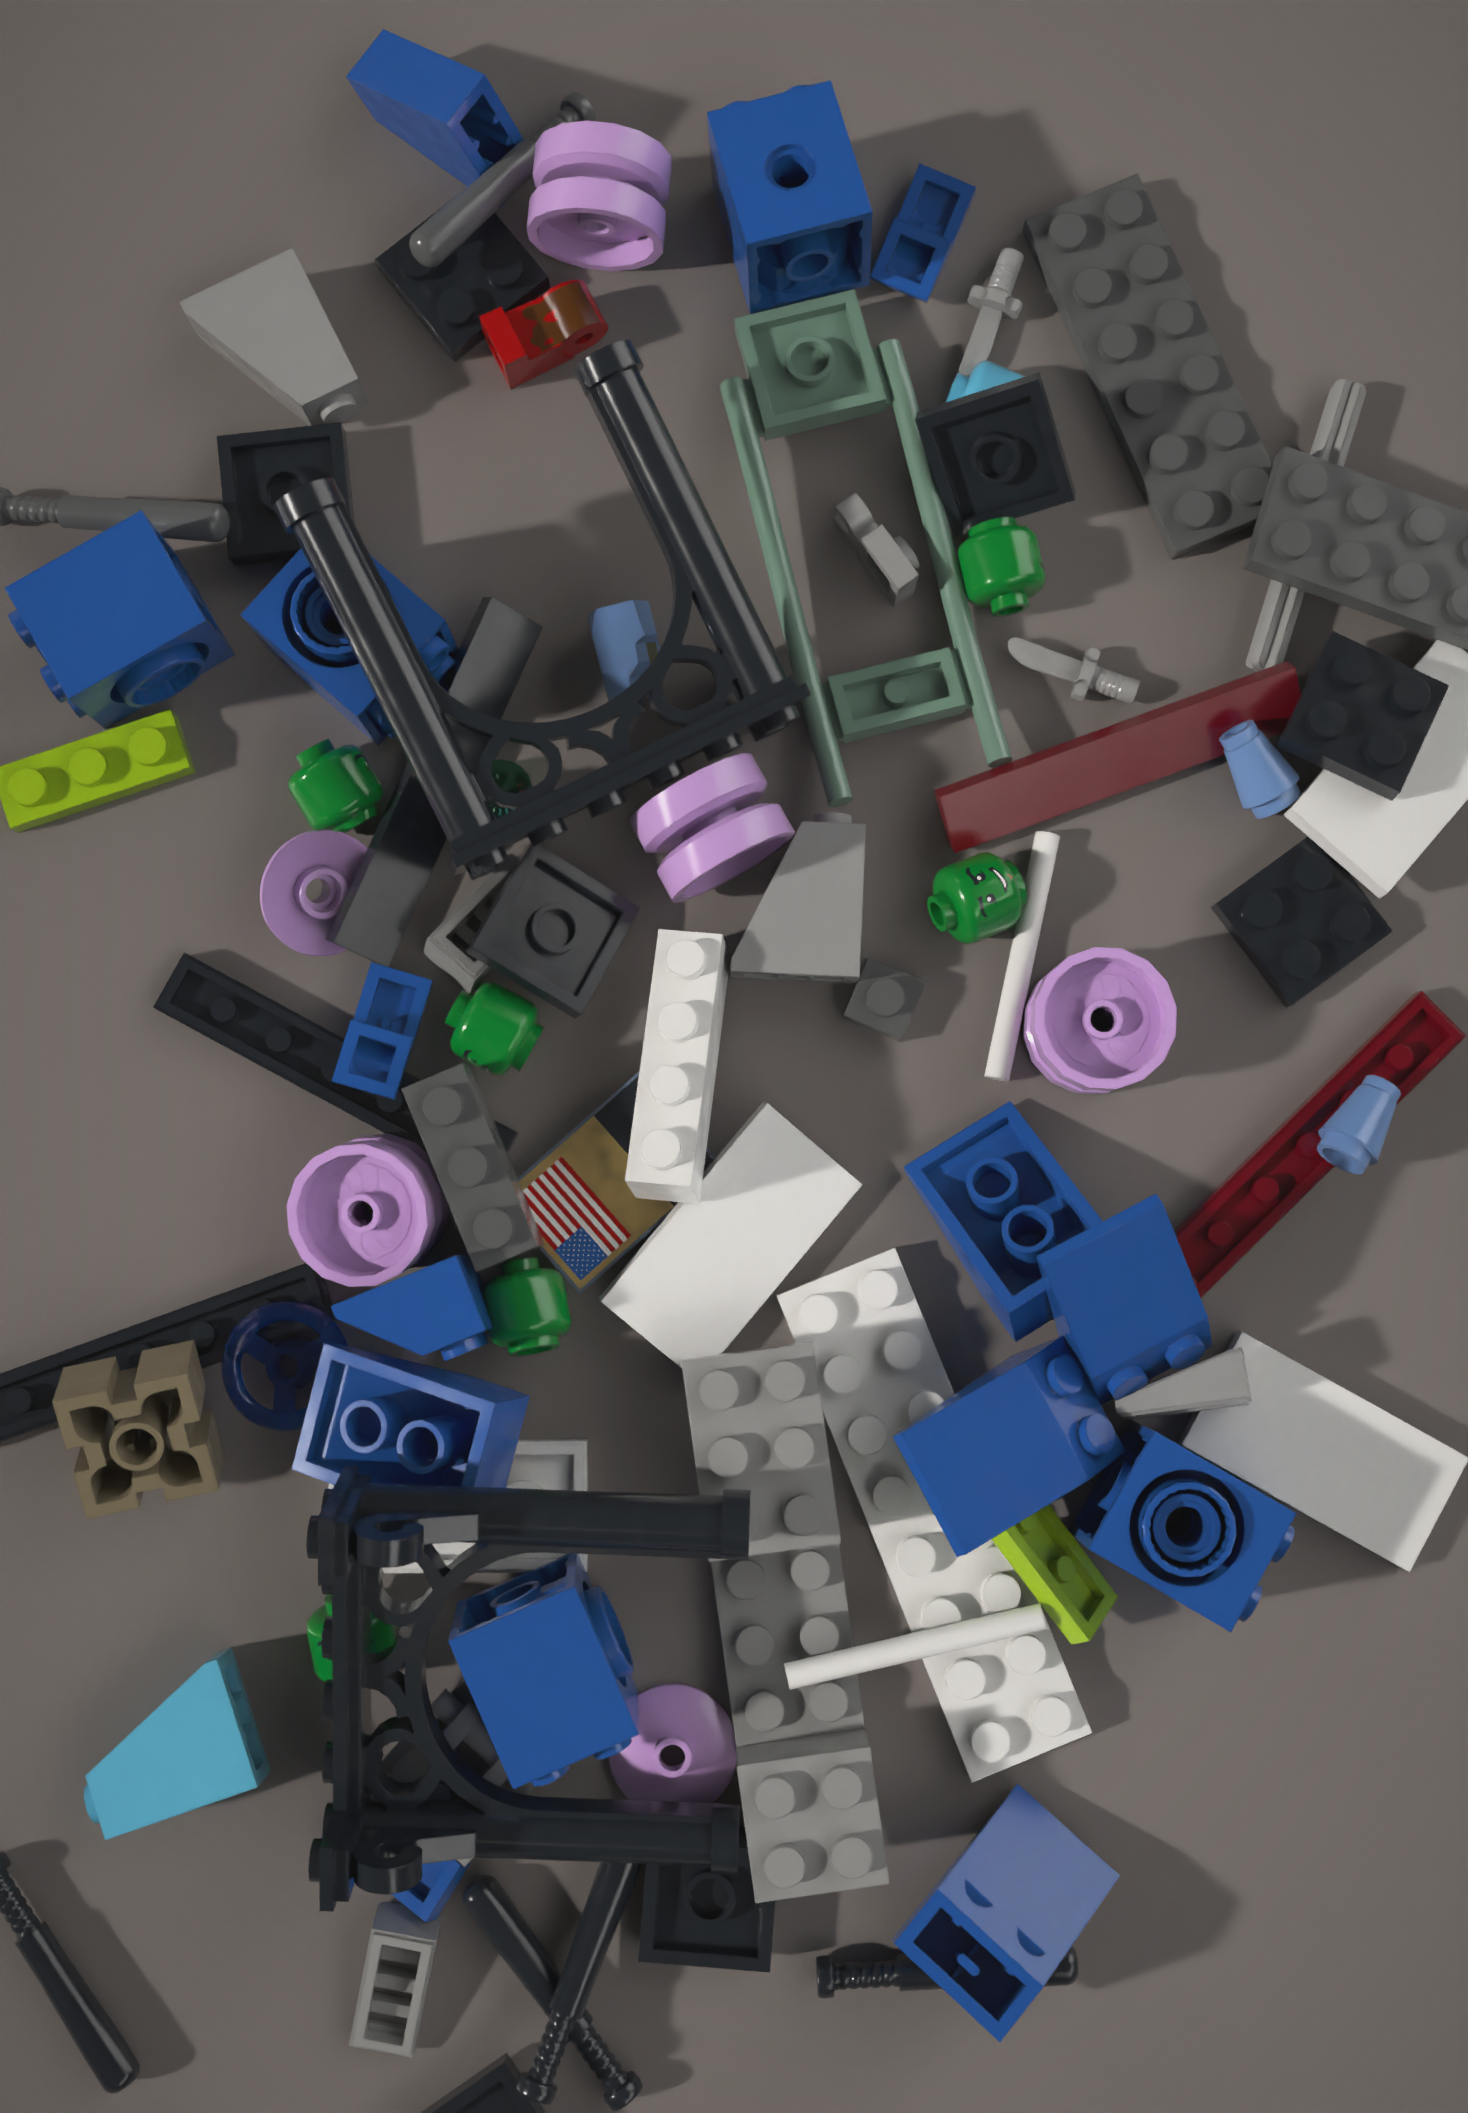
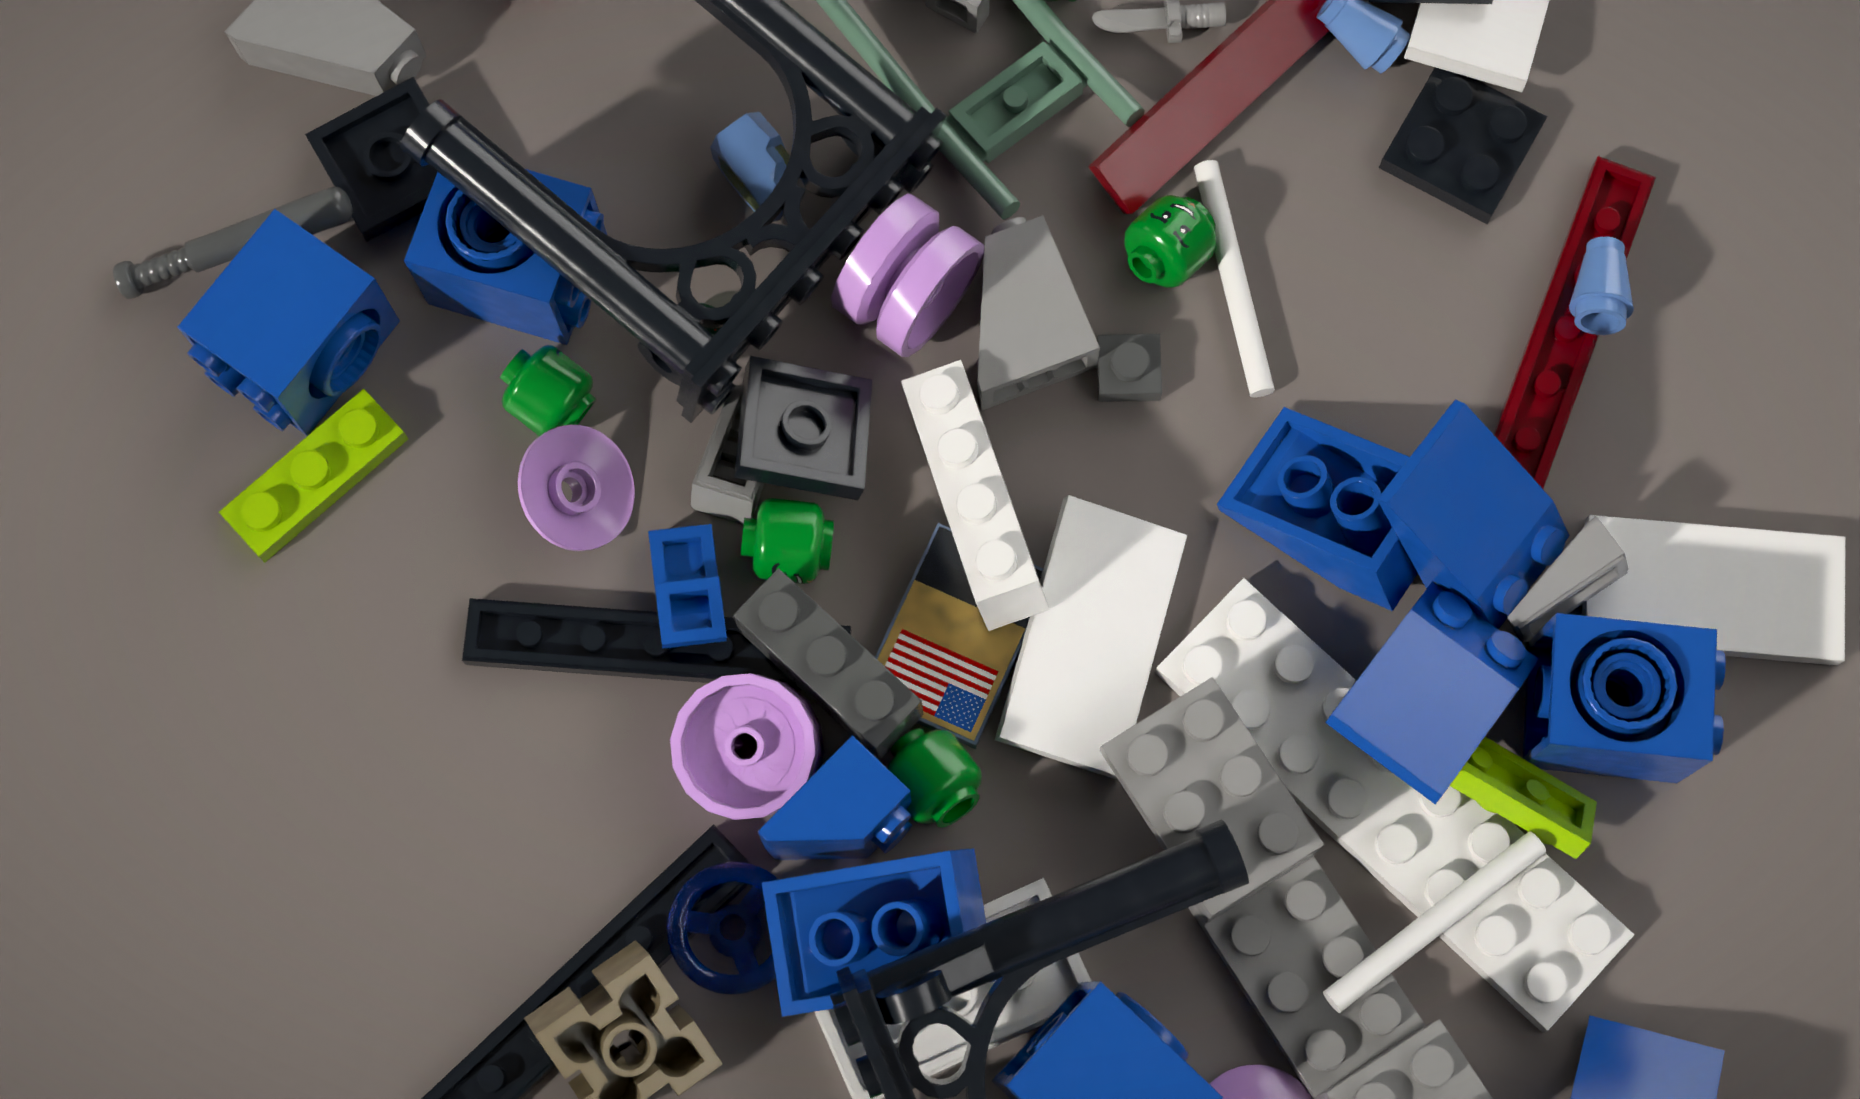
camera: 20 degrees left, 10 degrees down
(409, 831) = (632, 390): black tile -> none
(1116, 988) = (1330, 297): lavender wheel -> none

